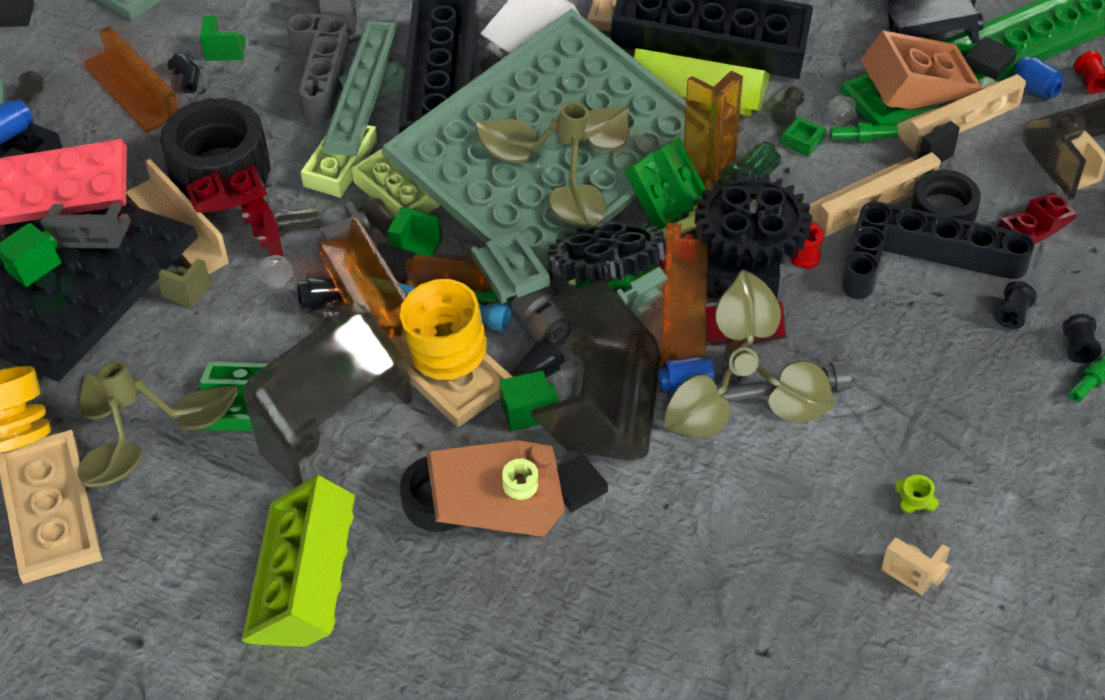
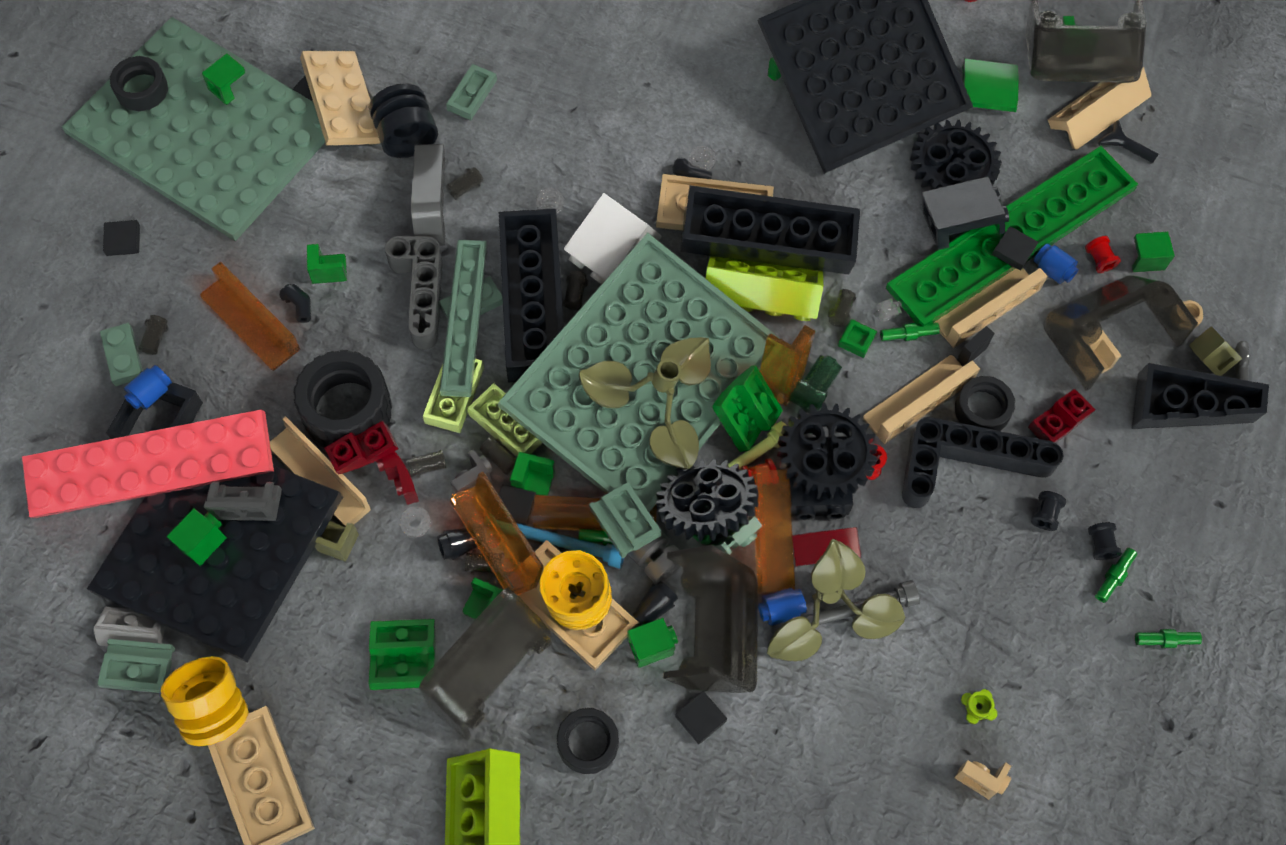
camera: 10 degrees left, 15 degrees up
(116, 388) = (293, 665): olive plant -> none
(471, 492) = (638, 740): nougat slope -> none
(529, 472) = (652, 739): yellowish green bush -> none
(917, 71) = (955, 272): nougat slope -> none

